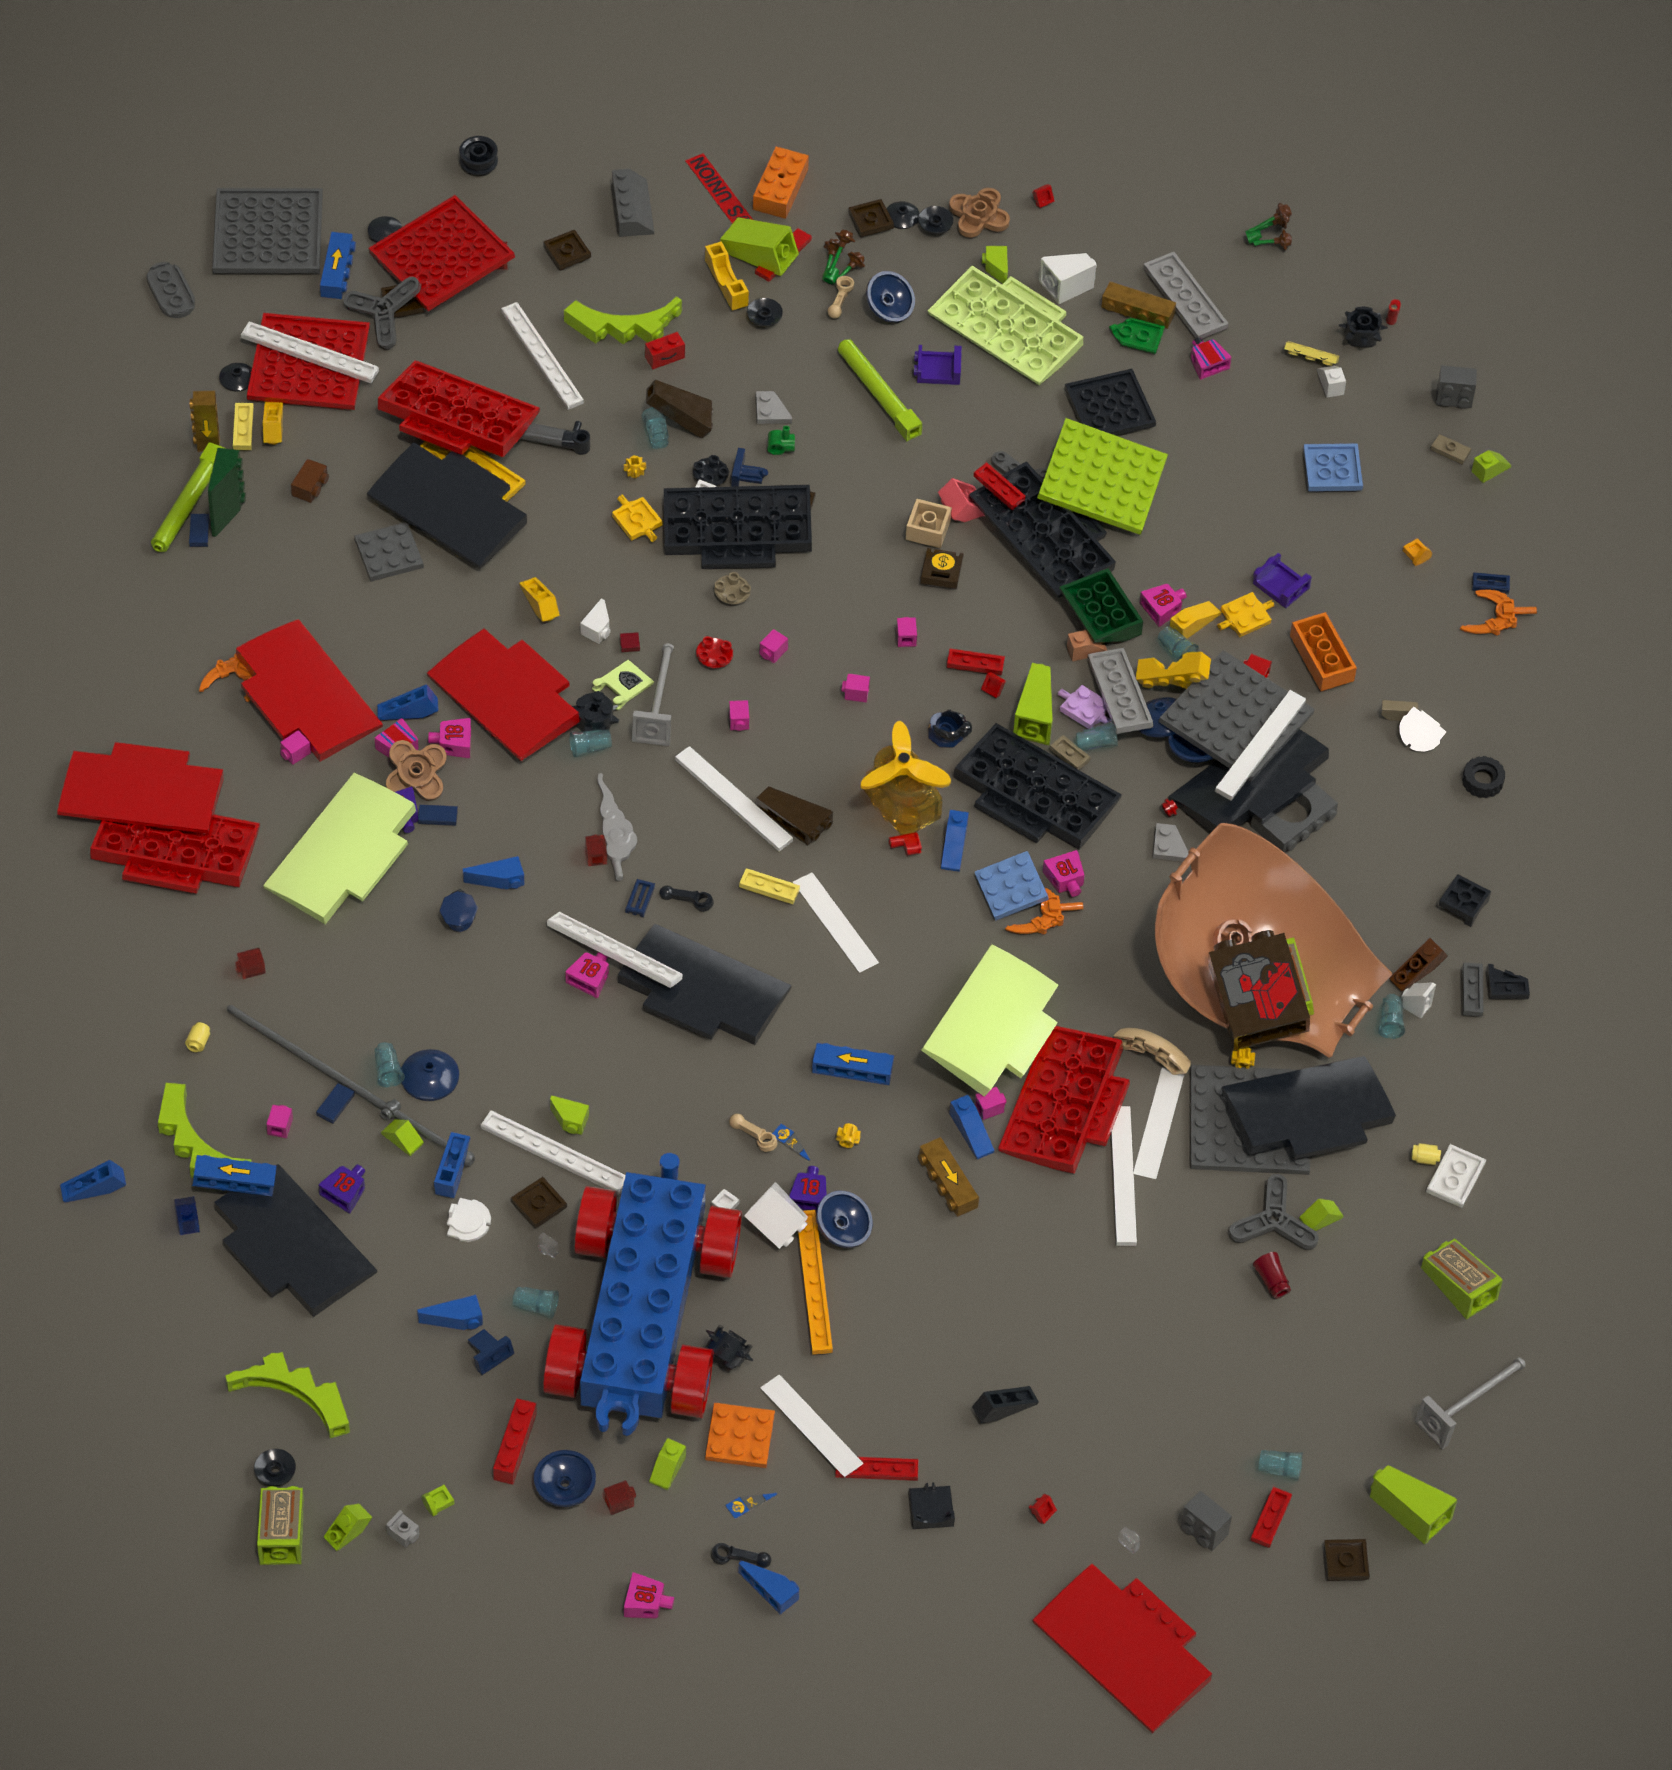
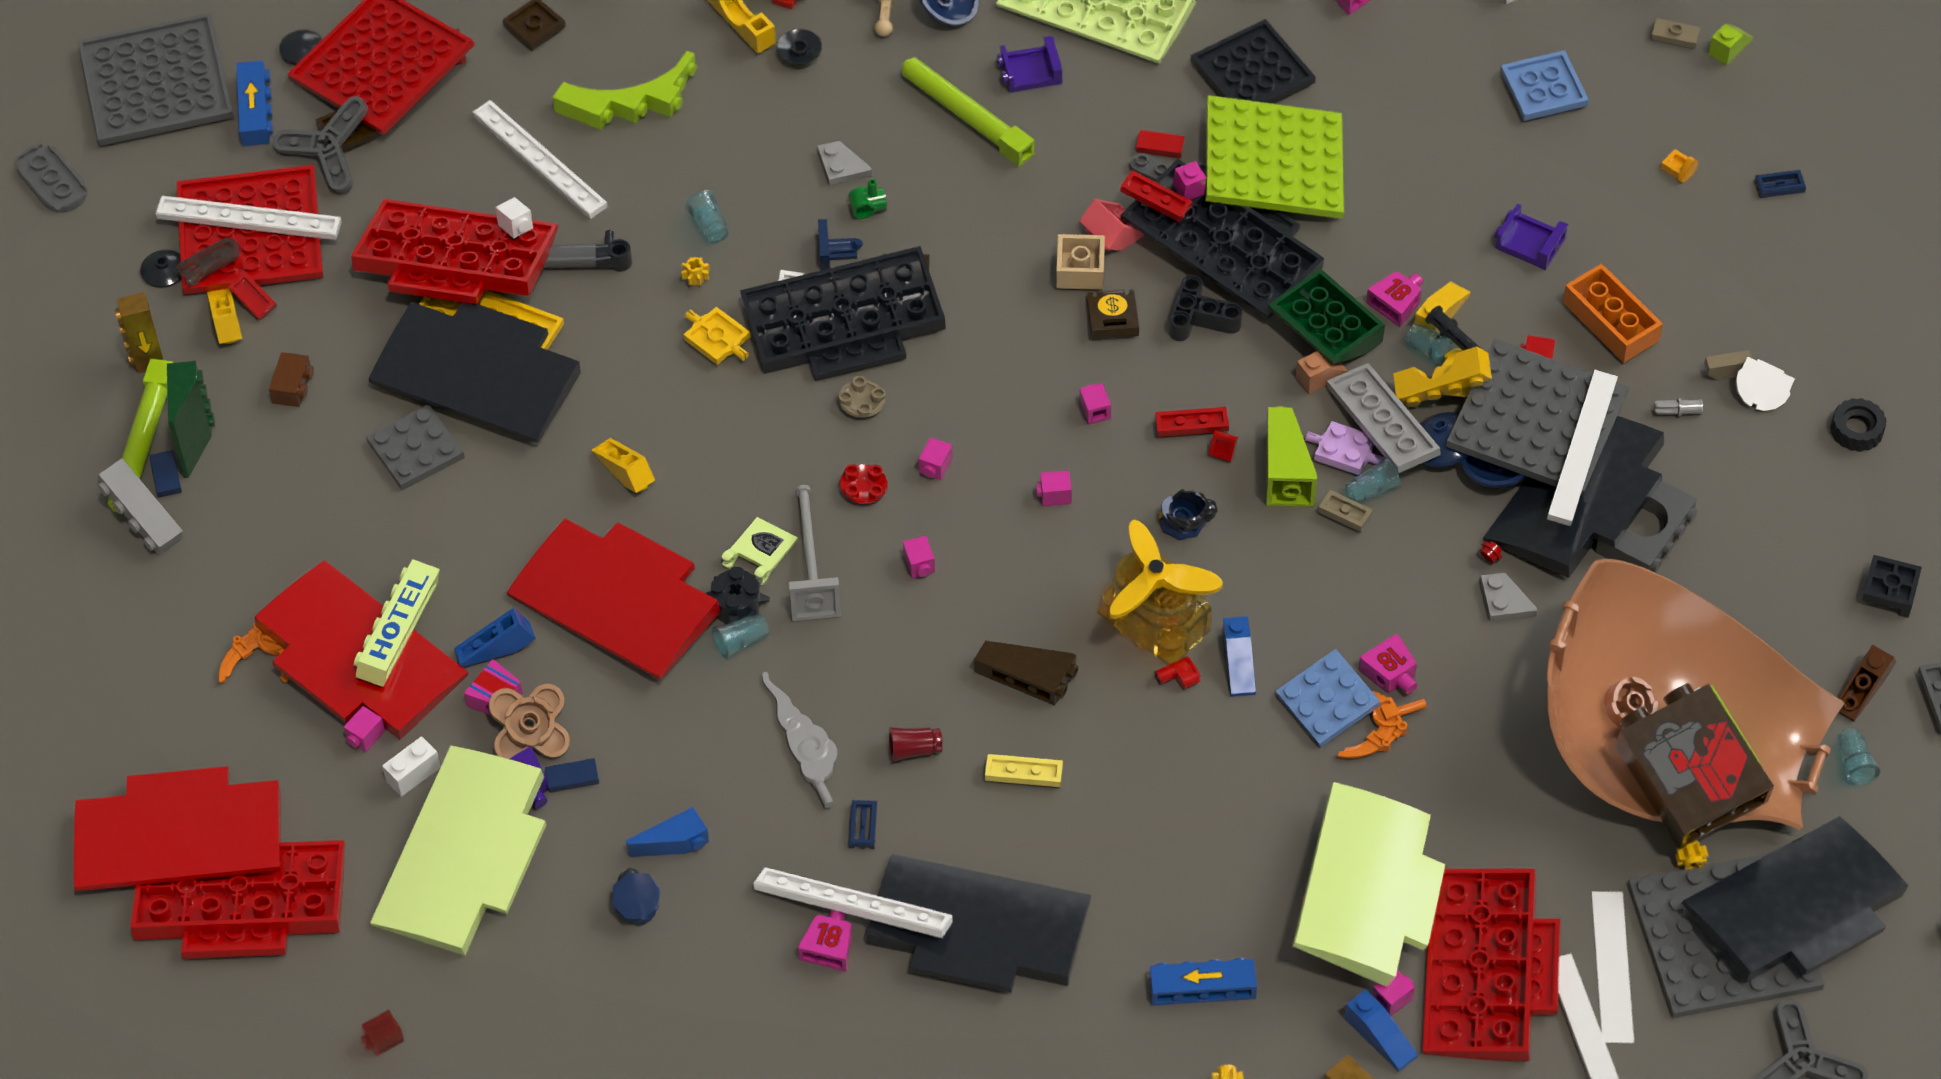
camera: 10 degrees left, 0 degrees up
(173, 549) = (139, 506): none -> light grey brick
(243, 426) = (187, 329): light yellow plate -> none
(271, 378) = (208, 260): none -> clear smoke plate
(297, 412) = (252, 296): none -> red tile
(322, 781) = (411, 766): none -> white brick
(339, 675) = (396, 623): none -> yellowish green brick
(453, 737) = (565, 668): dark pink torso -> none
(507, 395) = (514, 217): none -> white brick
(596, 623) = (705, 479): white slope -> none
(596, 850) = (789, 774): clear red brick -> none
(629, 642) = (753, 494): dark red tile -> none
(665, 350) = (690, 120): red brick -> none
(668, 893) = (896, 809): black piece -> none
(682, 407) = (733, 184): dark brown slope -> none
(694, 847) = (914, 742): none -> dark red plant
(711, 470) = (791, 255): black dish -> none
(734, 799) = (944, 666): white tile -> none
(836, 922) = (1121, 798): white sticker -> none
(1005, 578) = (1201, 311): none -> black beam
(1020, 447) = (1160, 143): none -> red tile
(1028, 480) = (1189, 181): none -> dark pink brick
(1034, 789) = (1315, 566): black slope -> none
(1165, 1051) = (1594, 871): tan brick -> none
(1191, 635) = (1449, 328): none -> black pin
(1245, 614) = (1501, 288): yellow plate -> none
(1321, 1214) = (1858, 1040): lime slope -> none
(1350, 733) = (1678, 407): none -> light grey axle
(1418, 998) = (1881, 724): white slope -> none
(1504, 611) = (1810, 215): orange bar -> none

